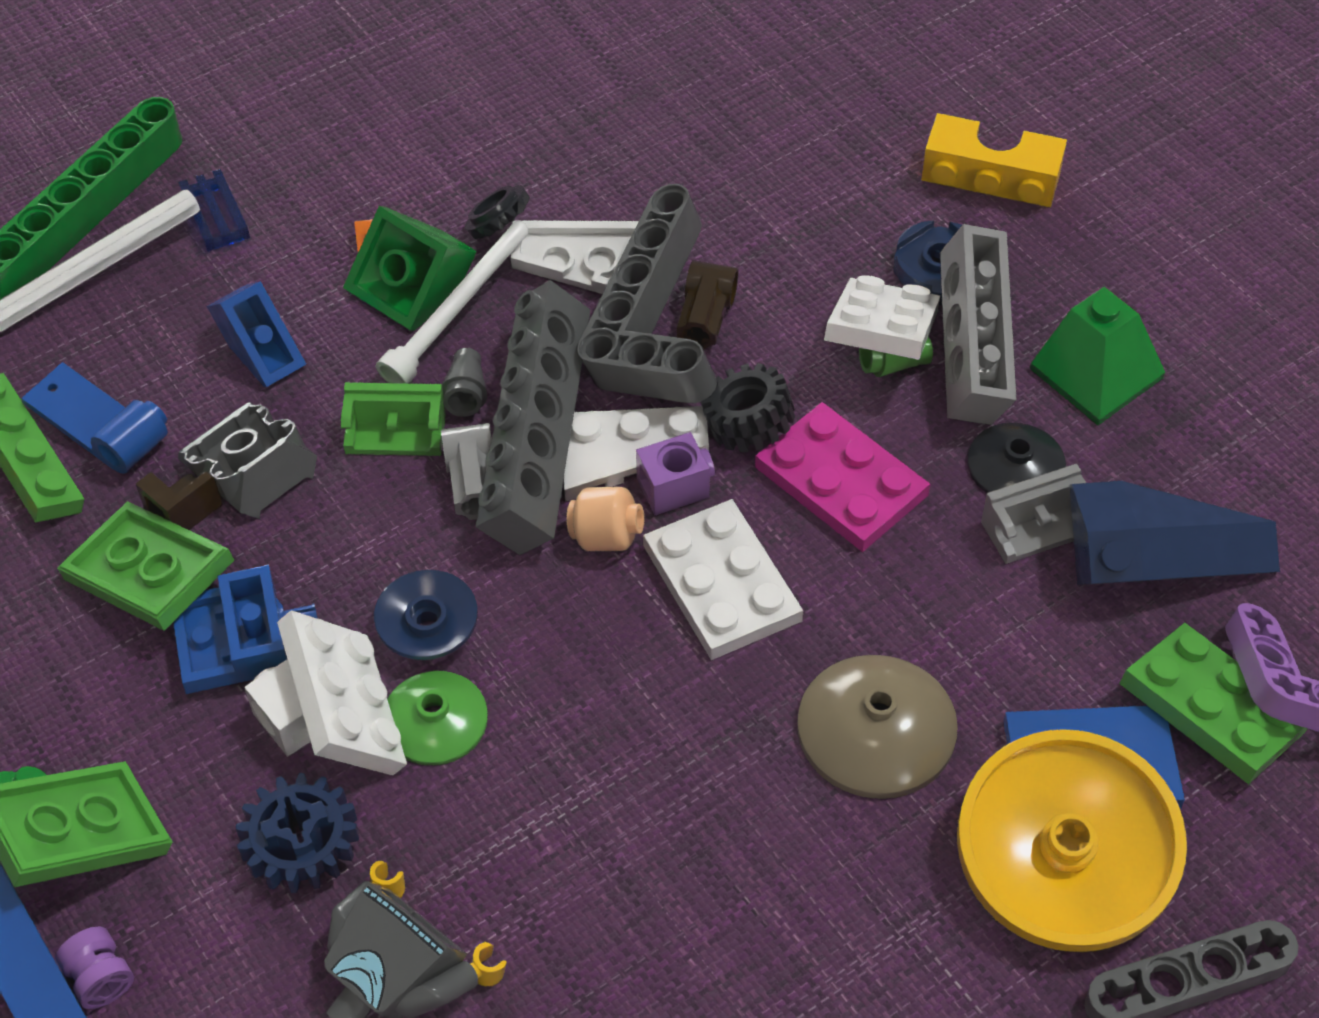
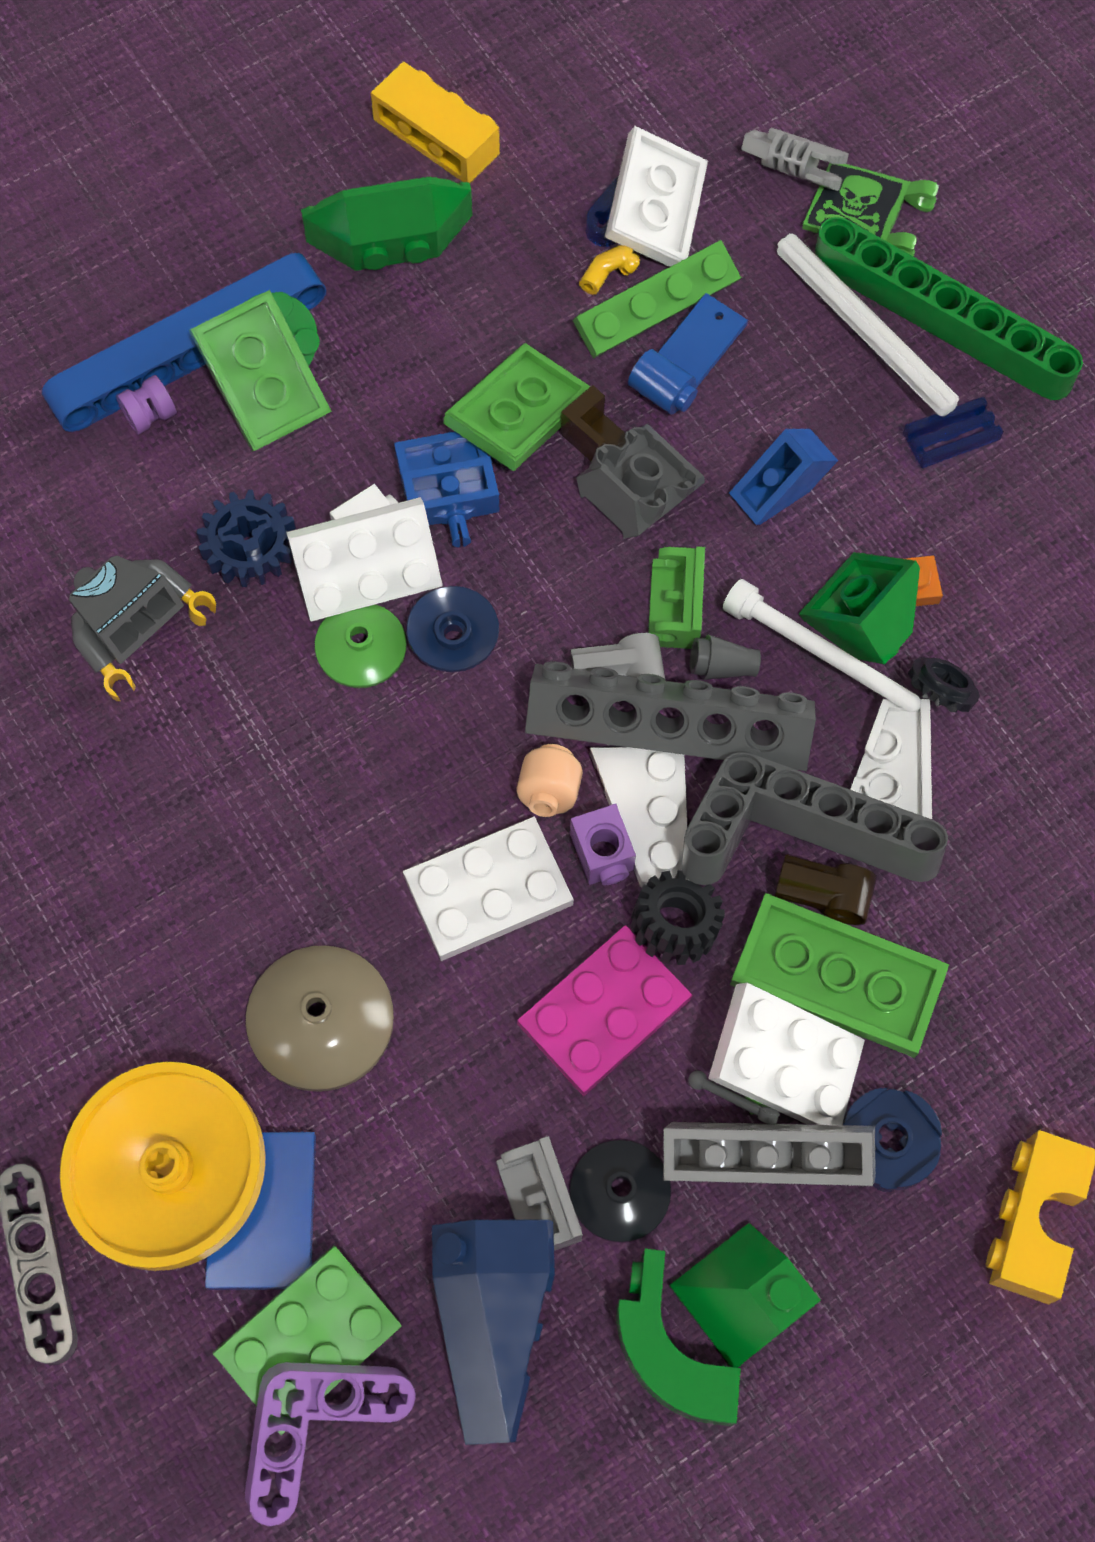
camera: 90 degrees right, 15 degrees up
(789, 295) = (842, 974): none -> bright green plate
(903, 400) = (698, 1081): none -> dark grey hinge
(1162, 425) = (674, 1380): none -> green arch

